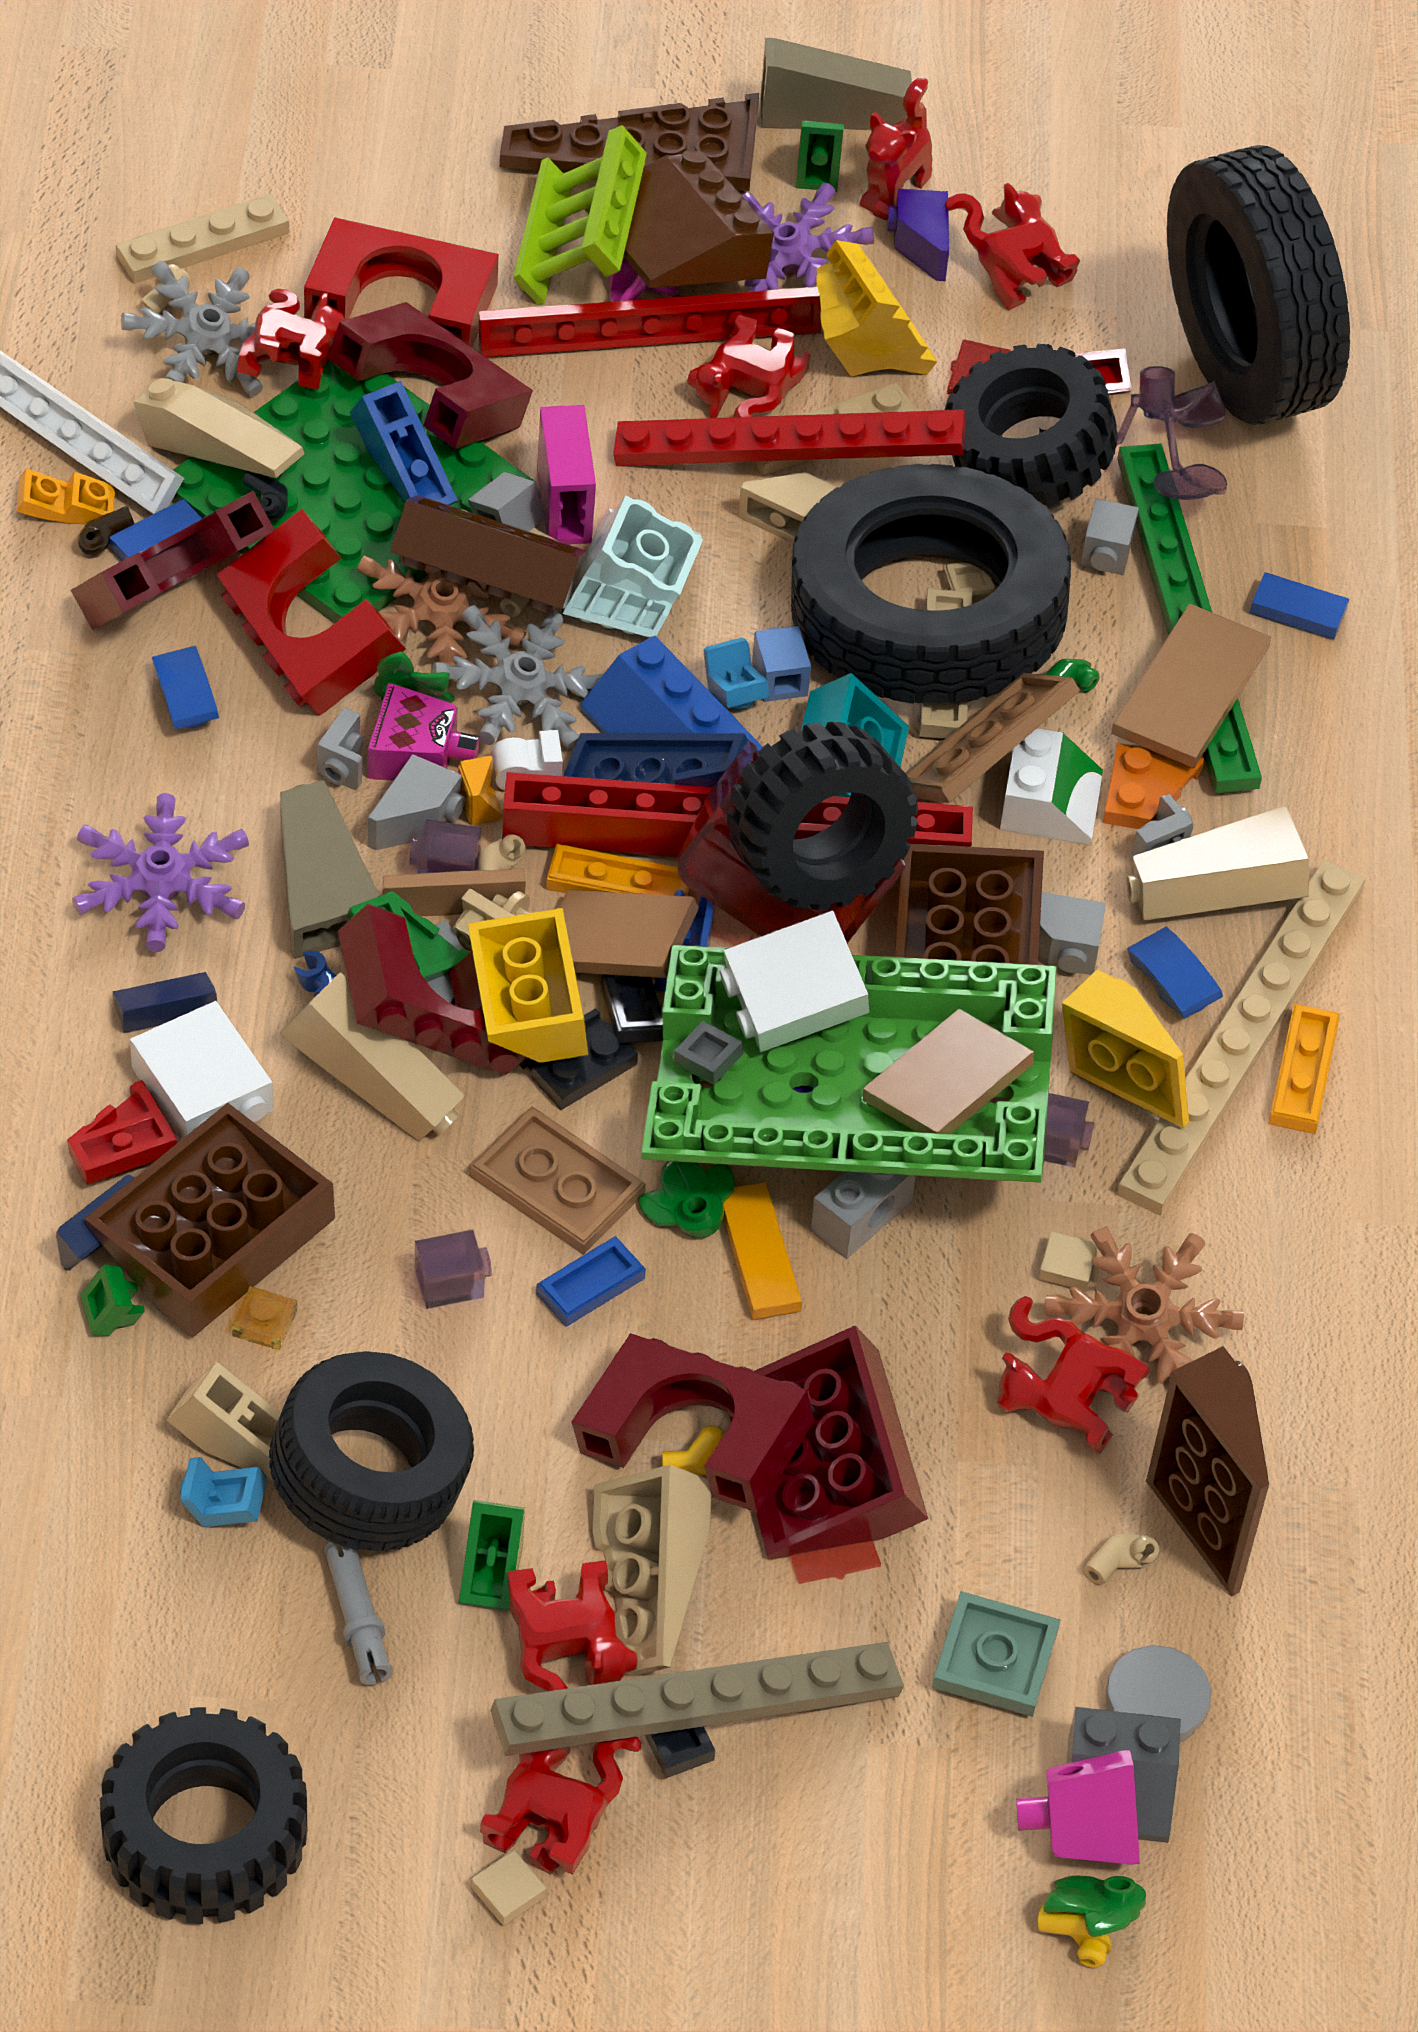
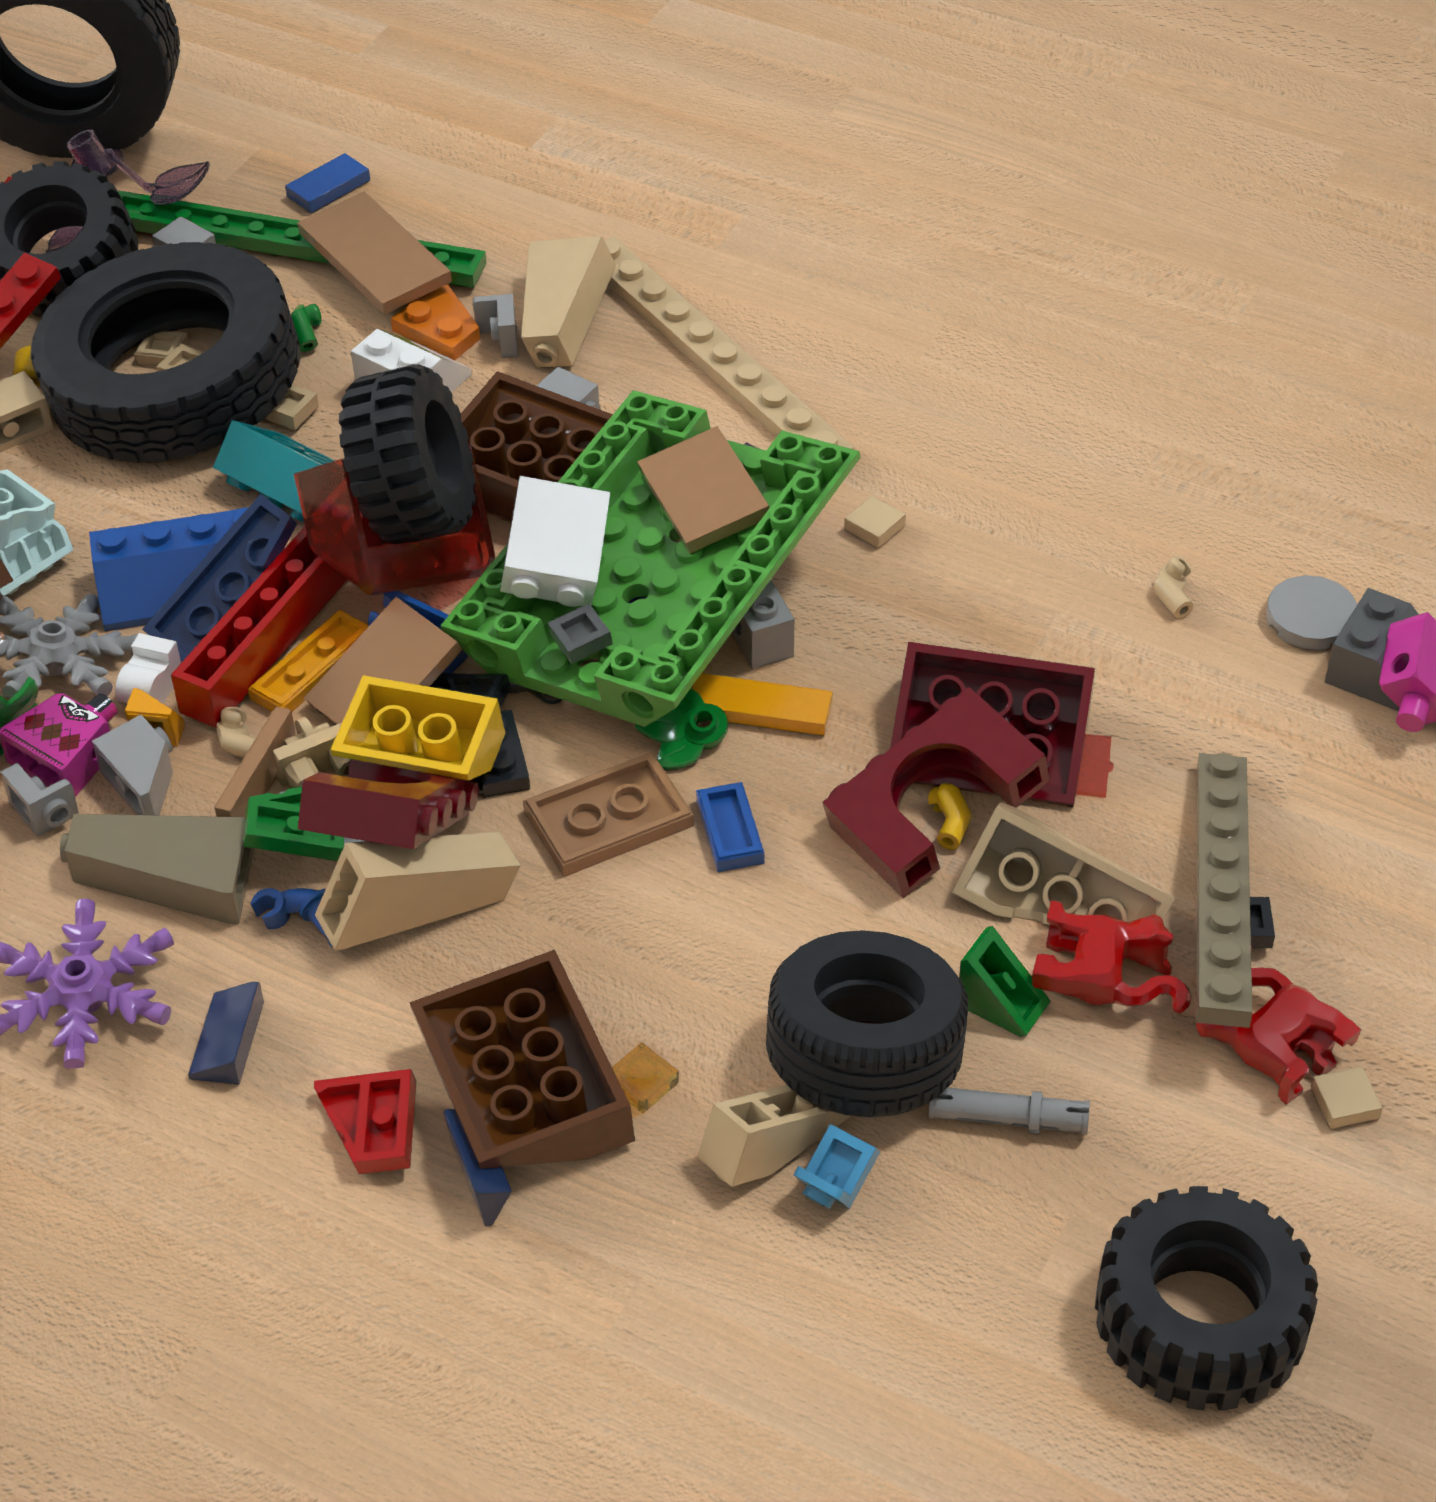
camera: 60 degrees left, 5 degrees down
(109, 1301) = (563, 1192): green tile -> none
(198, 1068) = (342, 1026): white brick -> none
(446, 848) = (209, 762): clear purple brick -> none
(451, 1268) = (671, 914): clear purple brick -> none
(732, 675) = (141, 509): dark azure bracket -> none
(783, 661) = (164, 478): medium blue brick -> none
(989, 735) = (337, 351): medium nougat tile -> none
(996, 1653) = (1238, 690): sand green plate -> none
(1075, 1380) = (1005, 542): red animal -> none
(1124, 1047) = (733, 385): yellow slope -> none
(1146, 1299) = (955, 491): nougat piece -> none
(1176, 972) = (644, 359): blue slope -> none
(1212, 1462) = (1168, 469): reddish brown slope -> none
(1304, 1068) = (766, 332): light orange tile -> none

